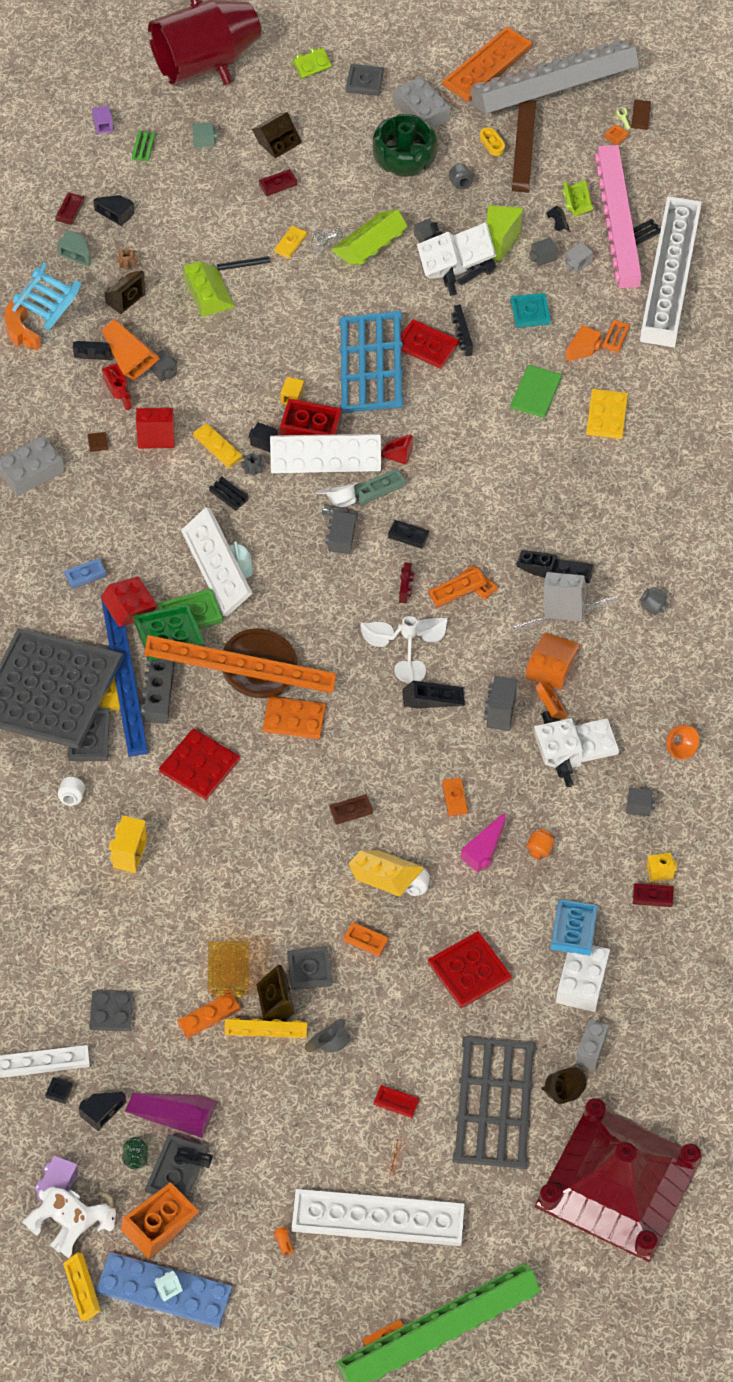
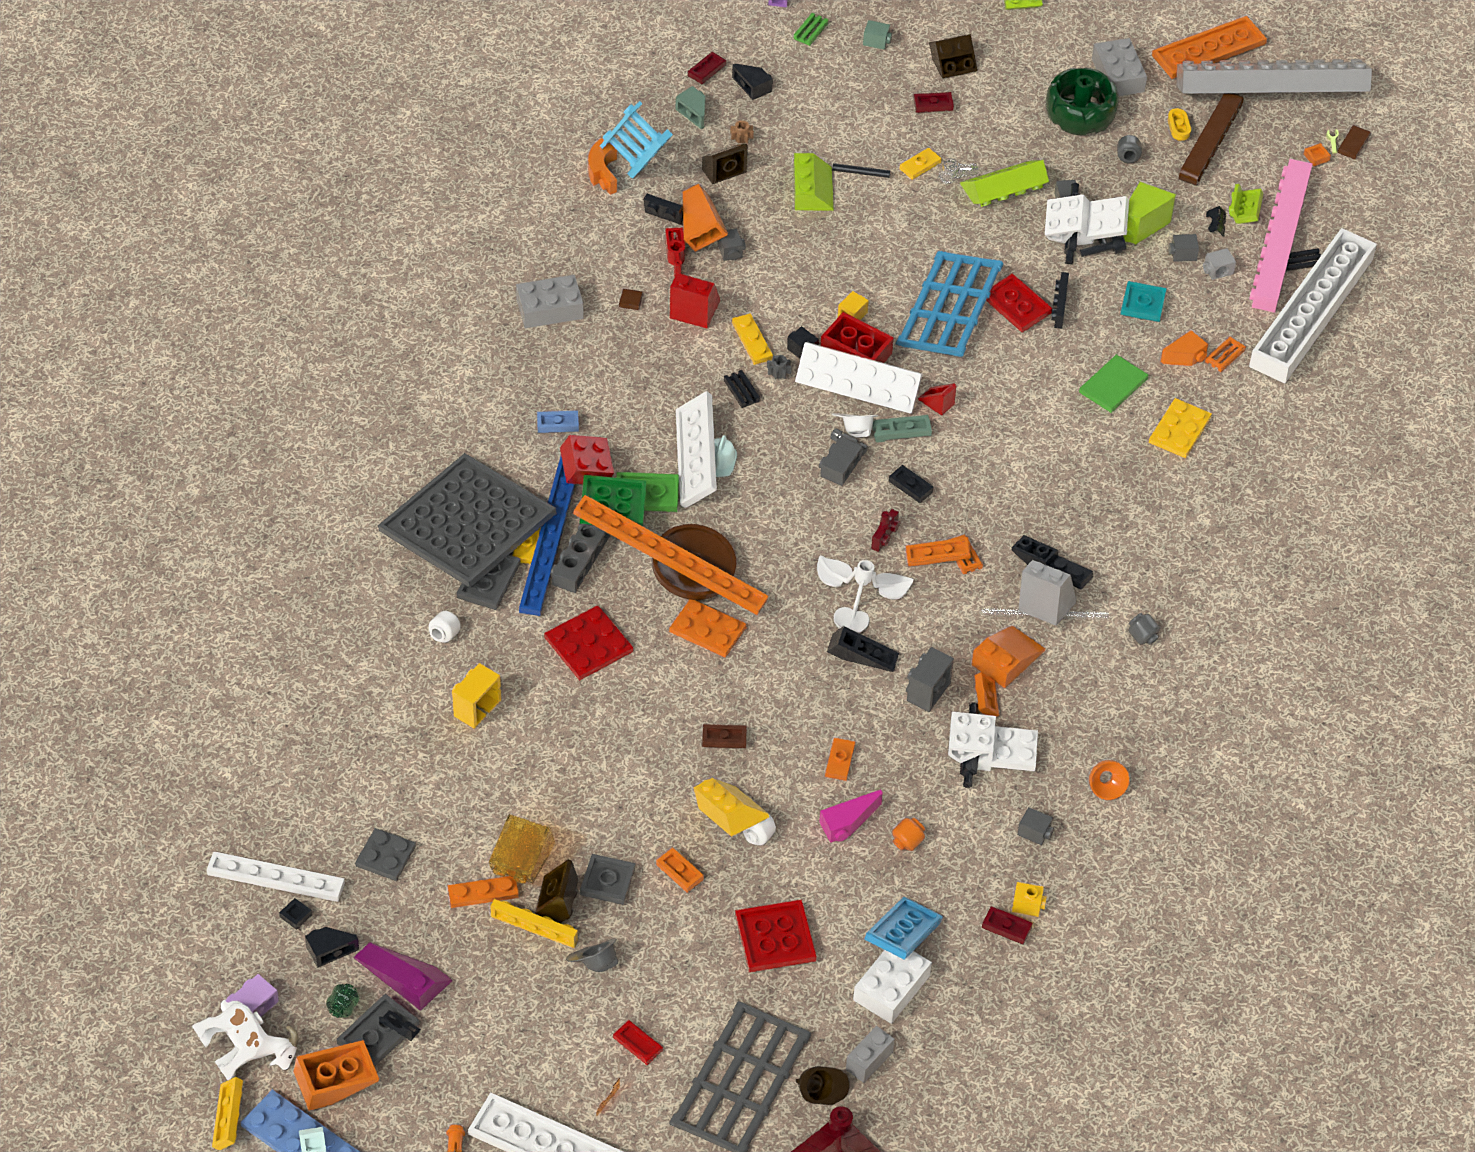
camera: 20 degrees right, 5 degrees down
(364, 79) = (1071, 27): dark grey plate -> none

